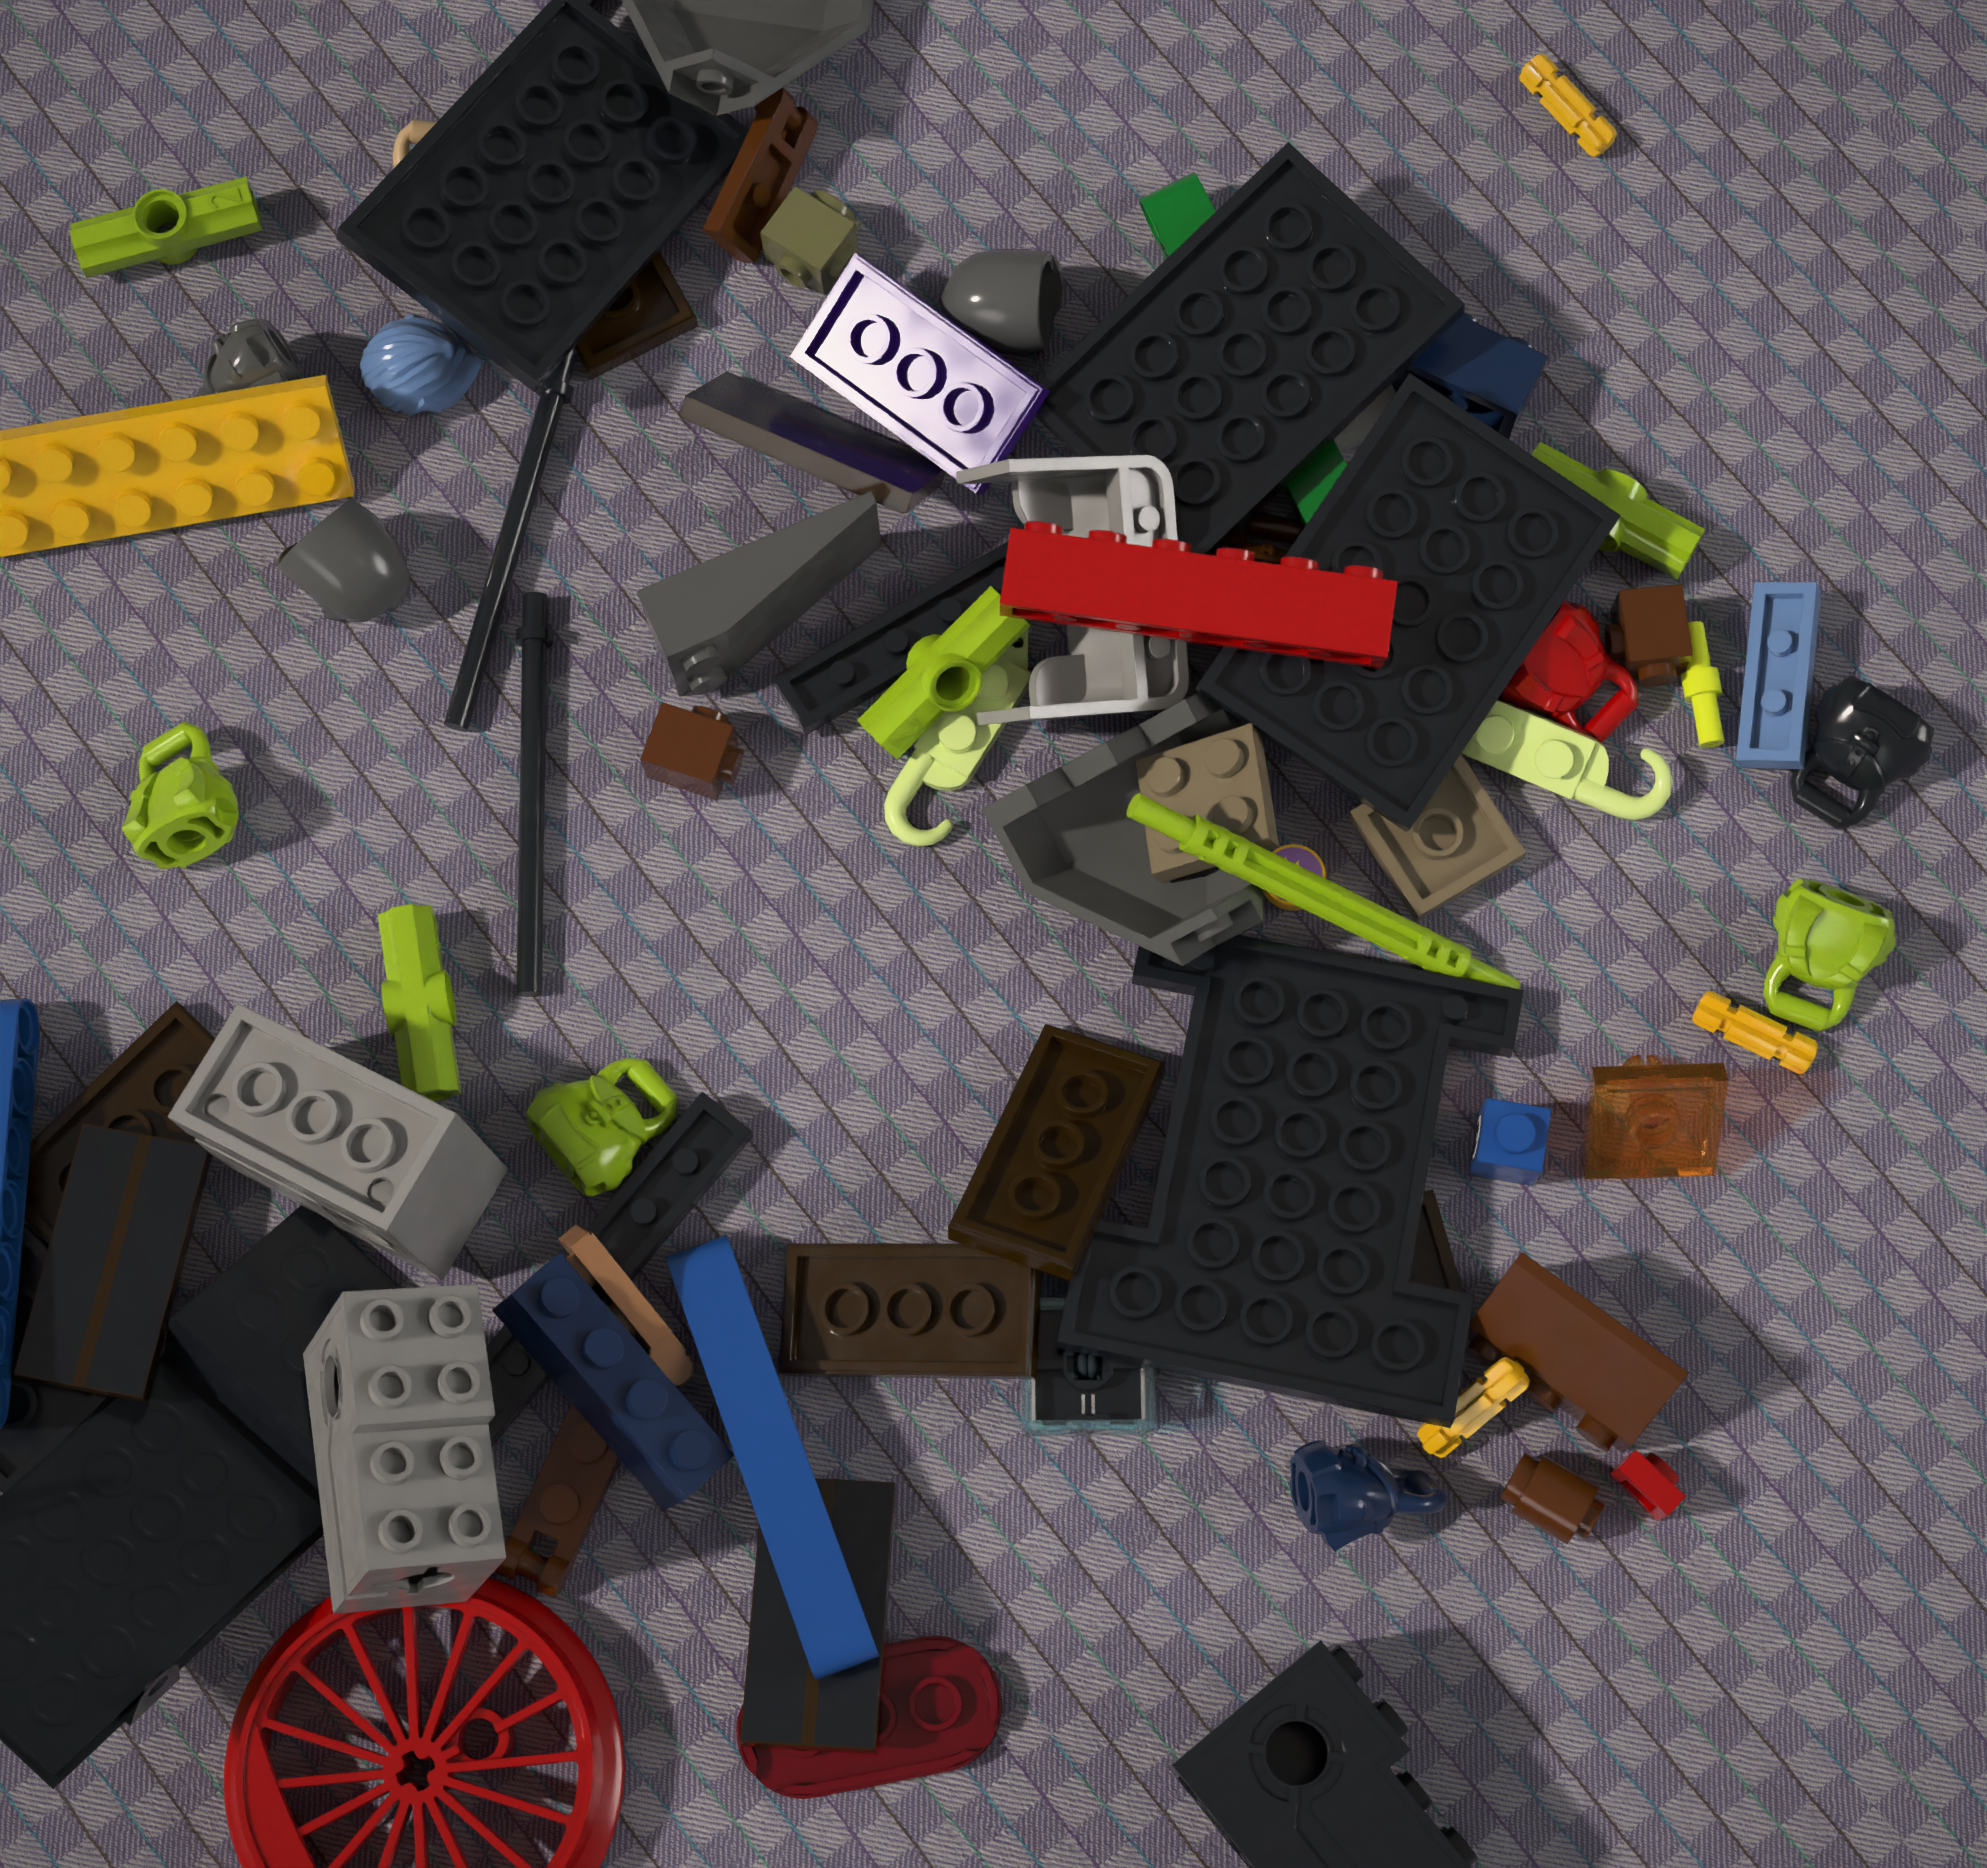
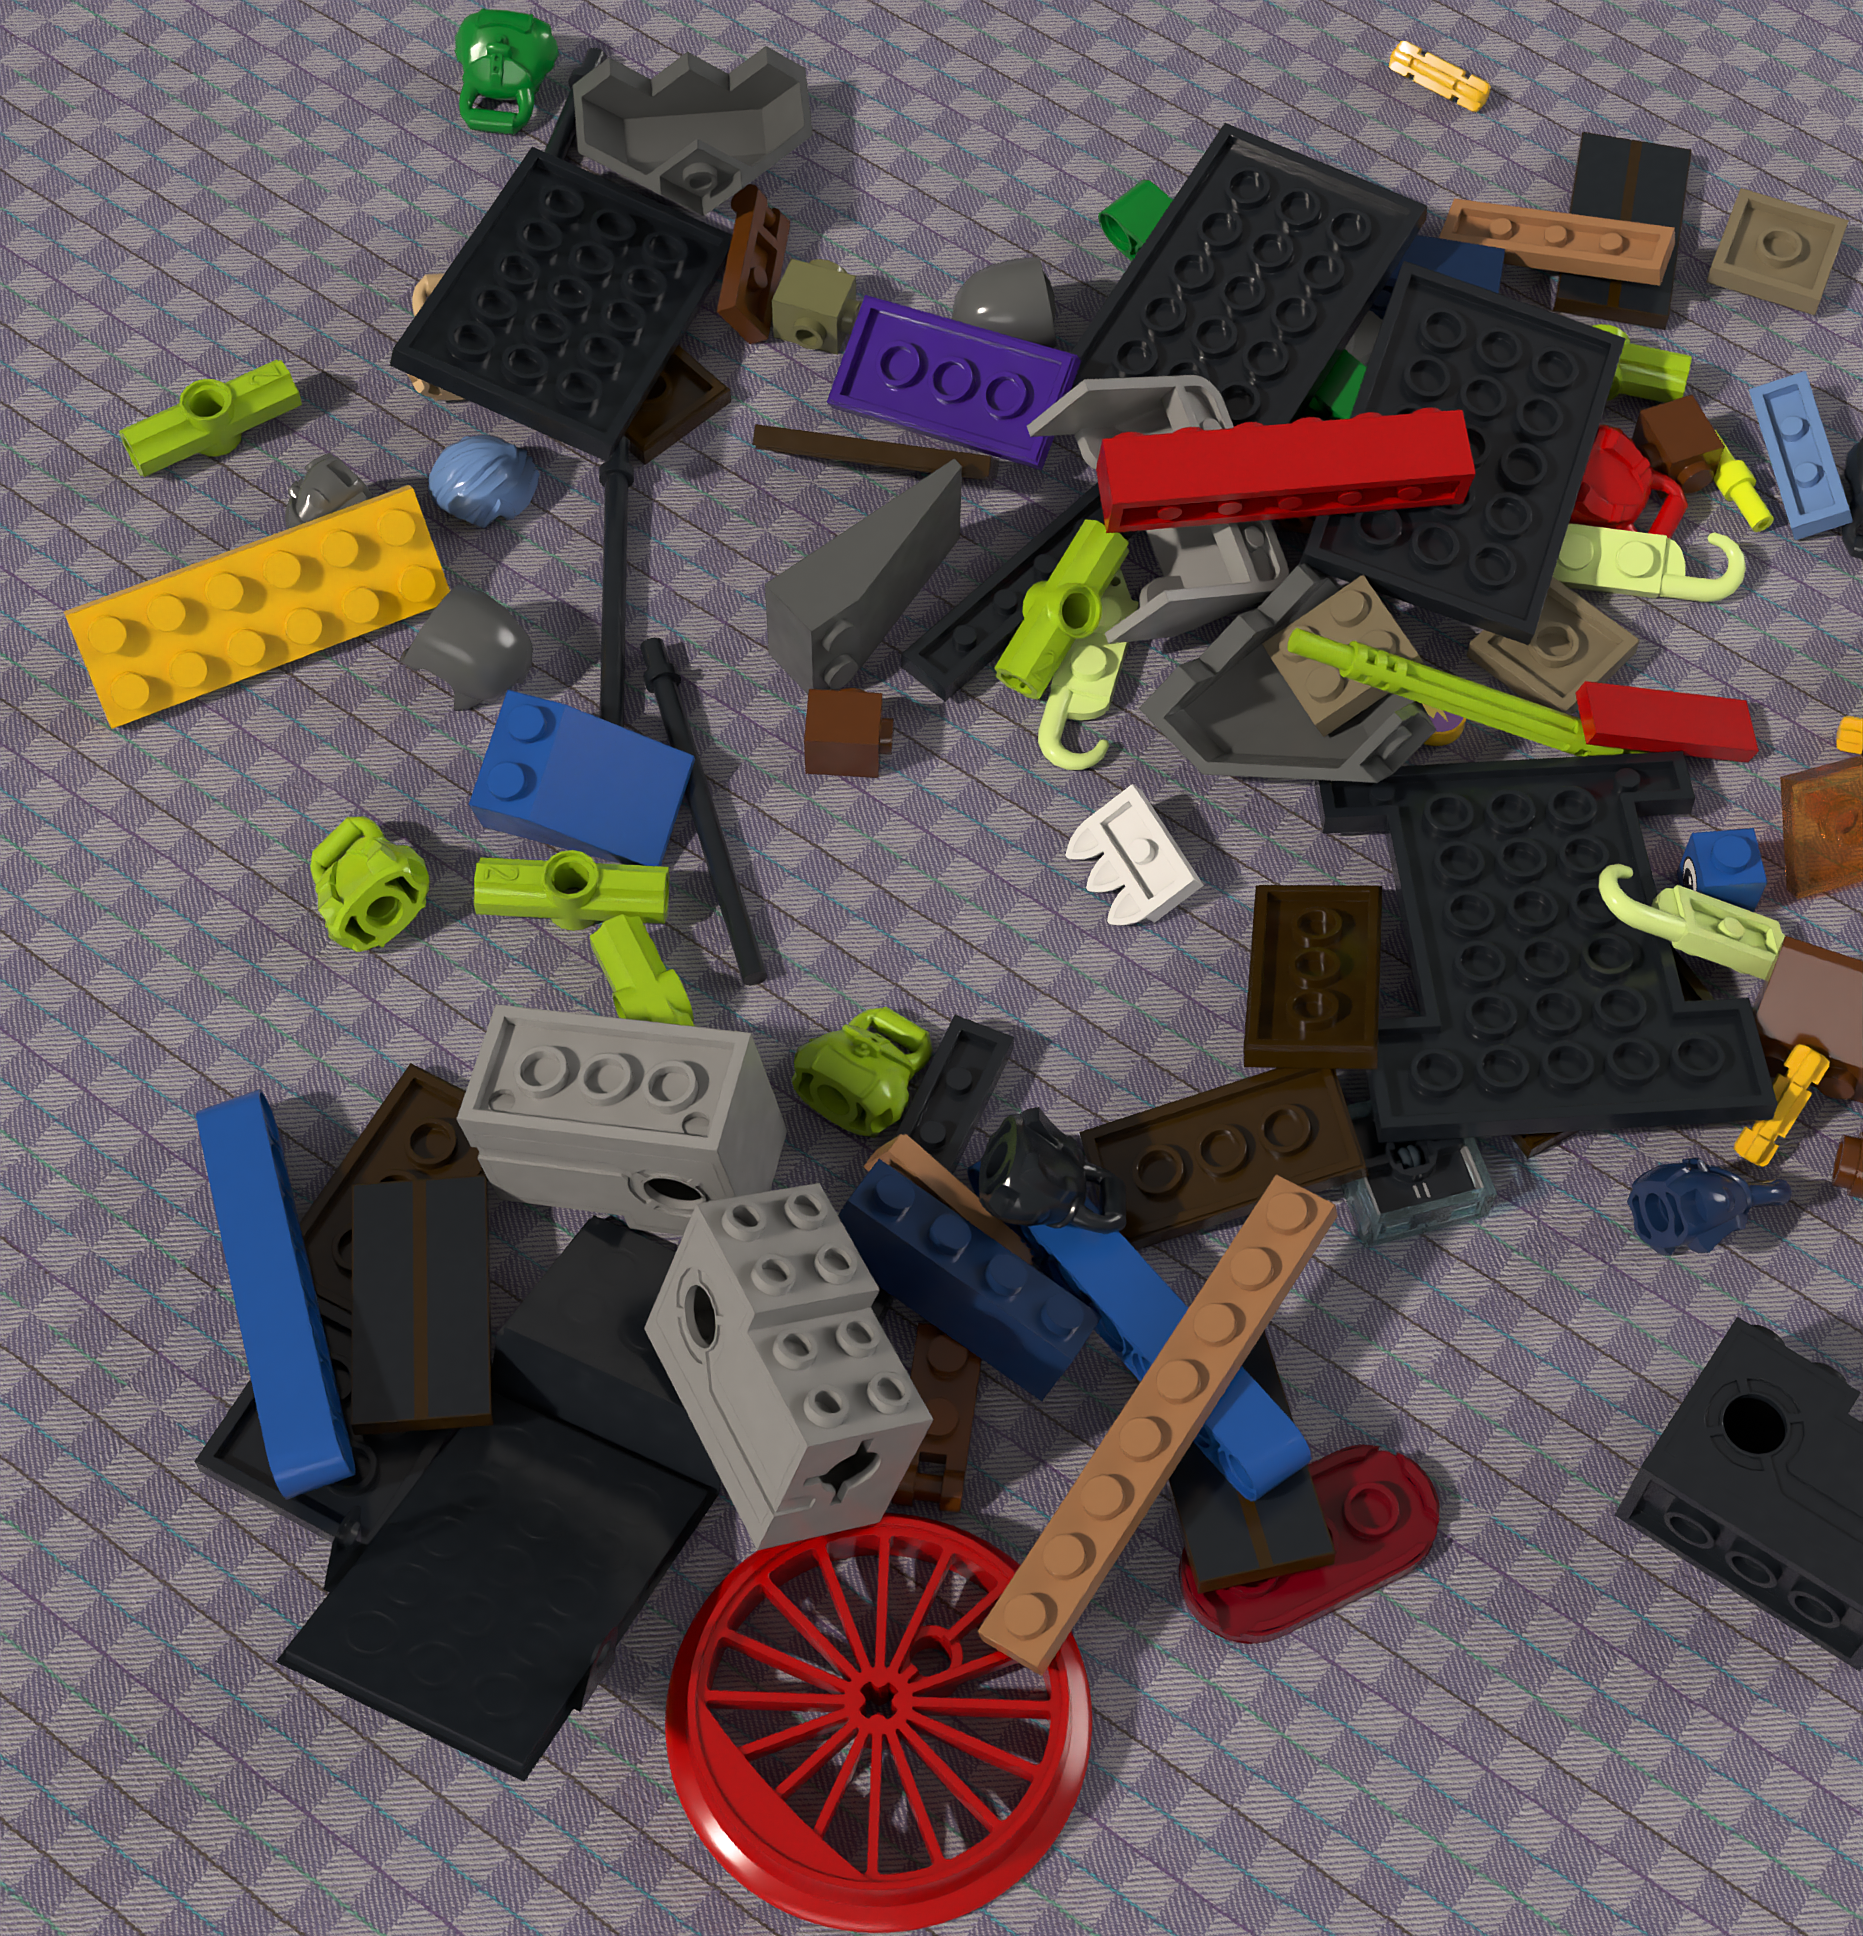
camera: 20 degrees left, 15 degrees down
(342, 843) = (536, 886): none -> lime piece
(414, 745) = (579, 782): none -> blue slope
(711, 1307) = (1040, 1178): none -> black piece
(744, 1586) = (1157, 1425): none -> medium nougat plate
(937, 964) = (1136, 855): none -> white plate
(1466, 1201) = (1698, 924): none -> yellowish green plate
(1517, 955) = (1666, 721): none -> red tile
(1612, 356) = (1564, 240): none -> medium nougat plate
(1697, 347) = (1631, 184): none -> black tile
(1851, 418) = (1777, 251): none -> dark tan plate

